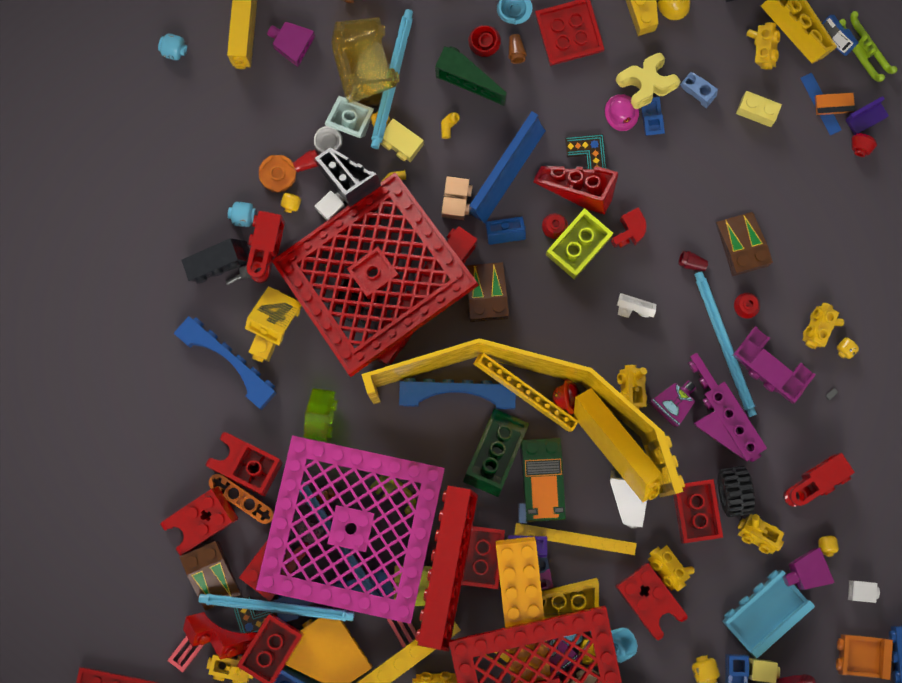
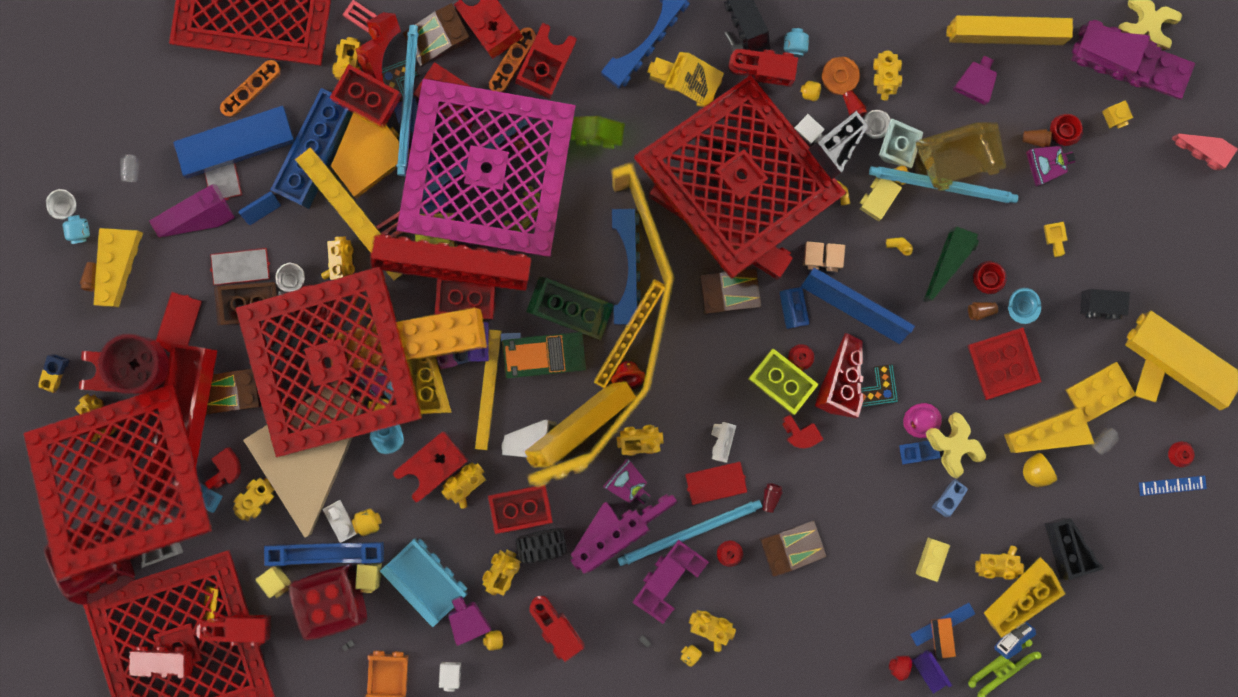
camera: 85 degrees right, 5 degrees up
(279, 127) = (887, 75): none -> yellow brick
(676, 315) = (716, 483): none -> red piece

